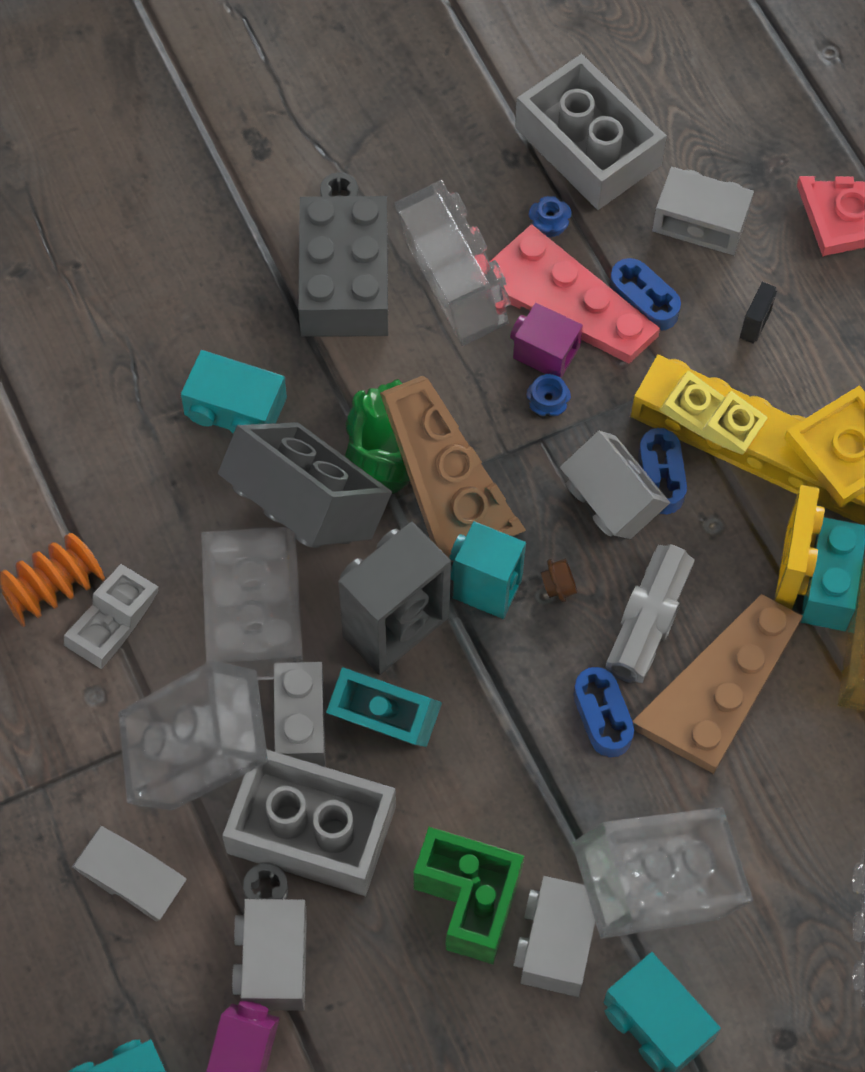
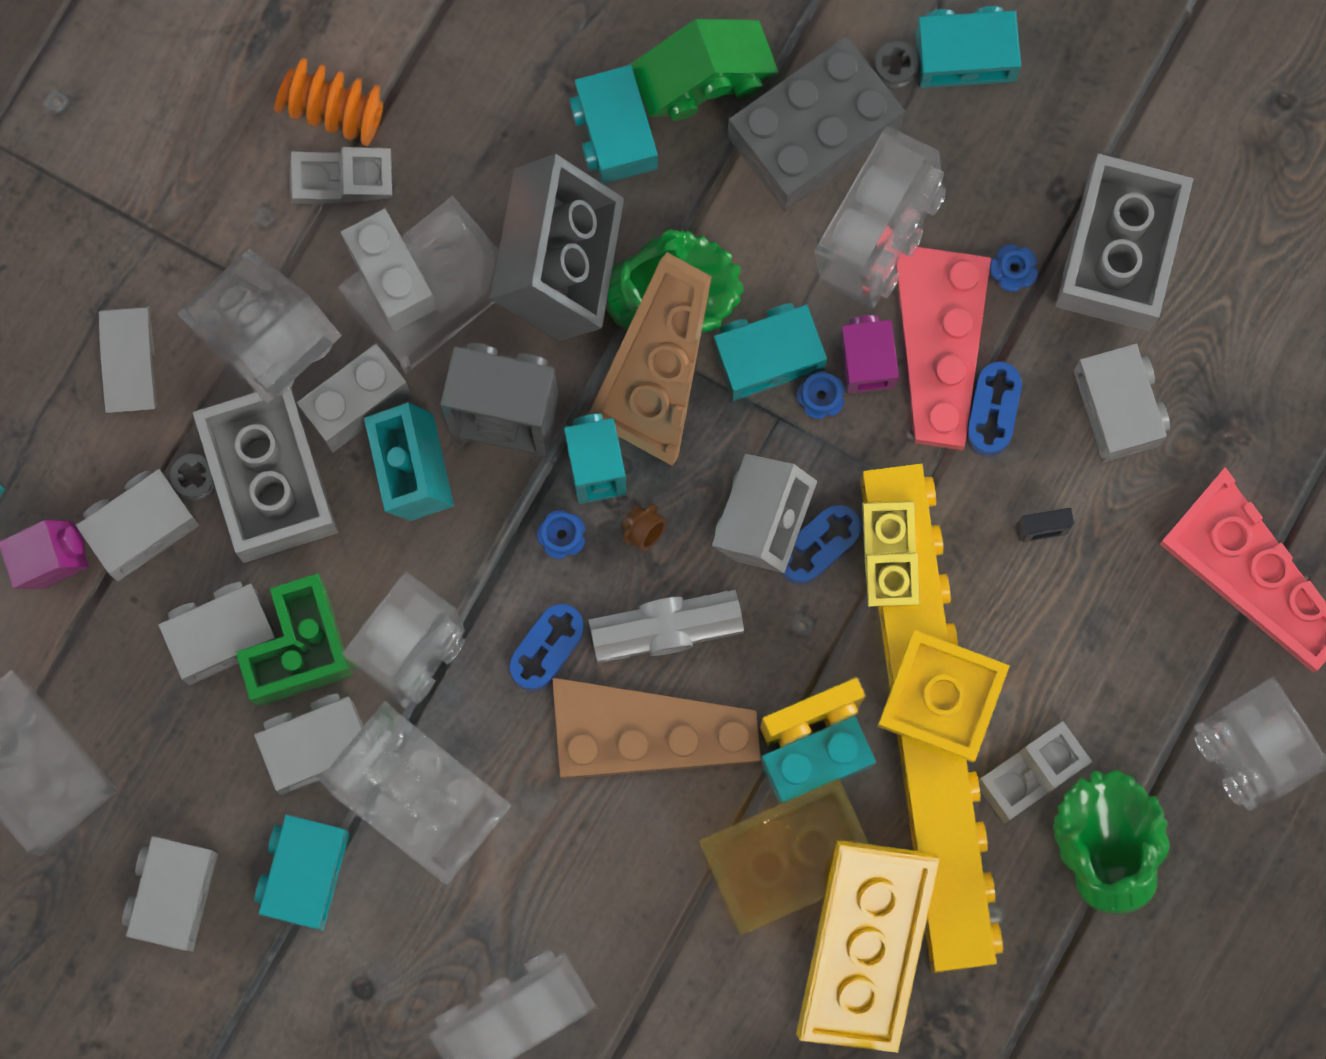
camera: 55 degrees right, 15 degrees up
(230, 603) = (389, 270): none -> light grey brick
(237, 306) = (702, 64): none -> green brick
(367, 138) = (967, 47): none -> teal brick
(412, 949) = (208, 636): none -> light grey brick
(491, 404) = (768, 350): none -> teal brick
(524, 631) = (556, 522): none -> blue plate
(537, 791) = (406, 641): none -> clear brick

